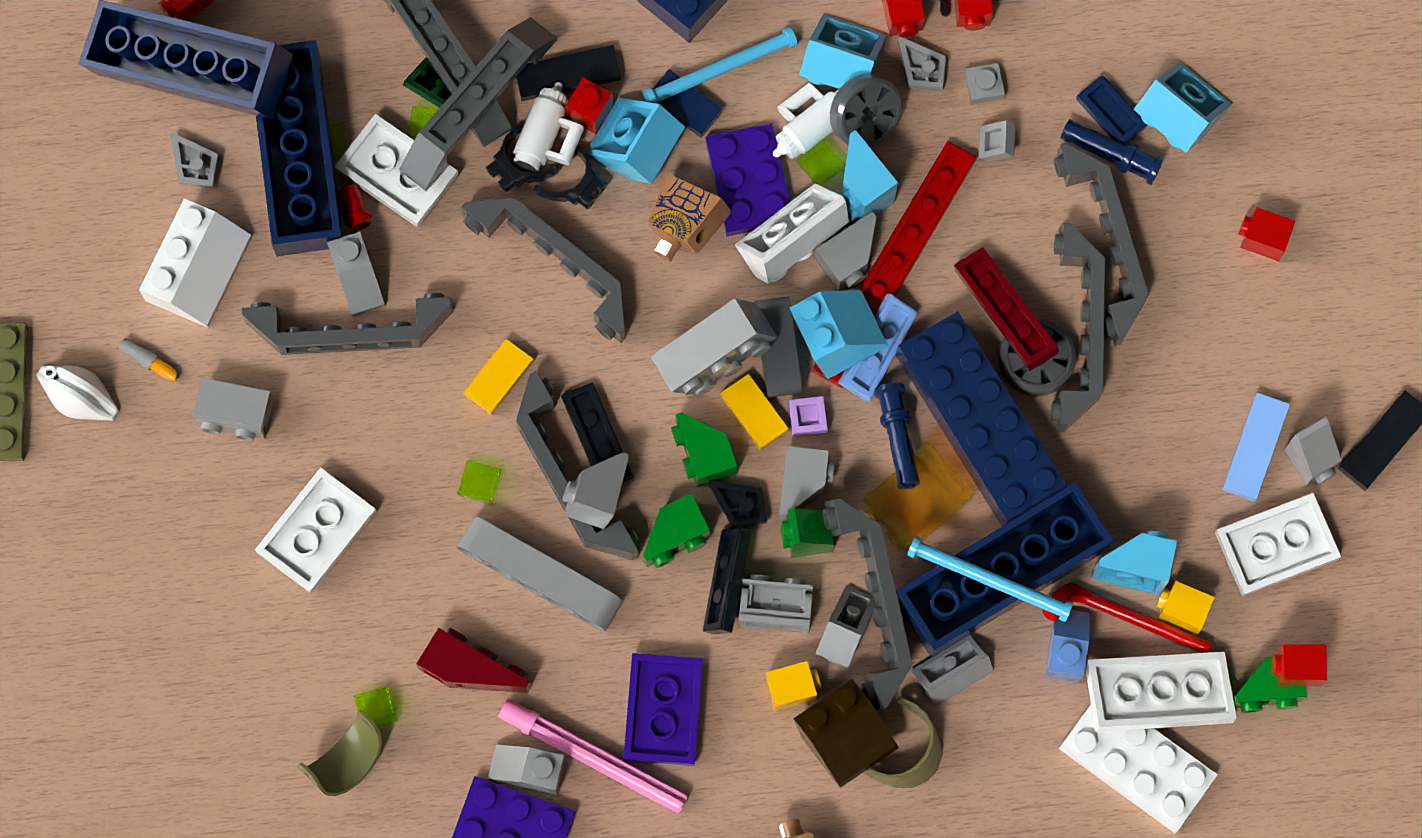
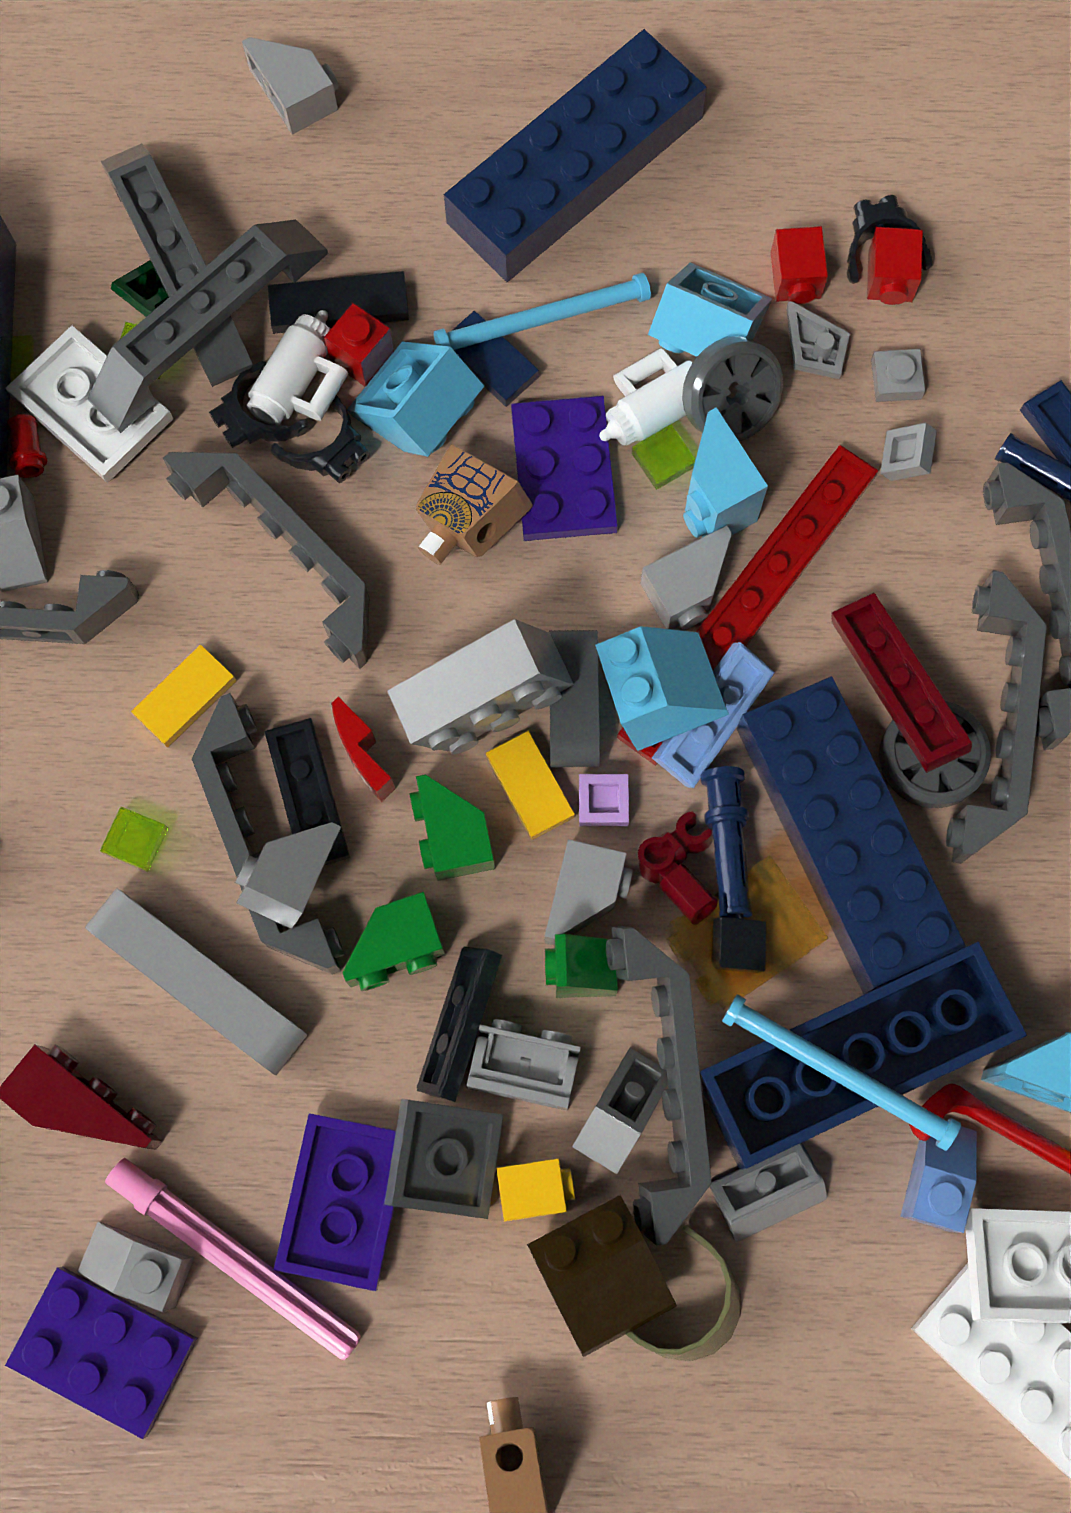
camera: 10 degrees right, 0 degrees up
(627, 392) = (357, 741): none -> red slope
(729, 671) = (444, 1159): none -> dark grey plate
(740, 503) = (493, 912): black piece -> none
(793, 233) = (615, 543): white slope -> none
(854, 452) = (661, 863): none -> dark red bar
(914, 505) = (739, 945): none -> black tile

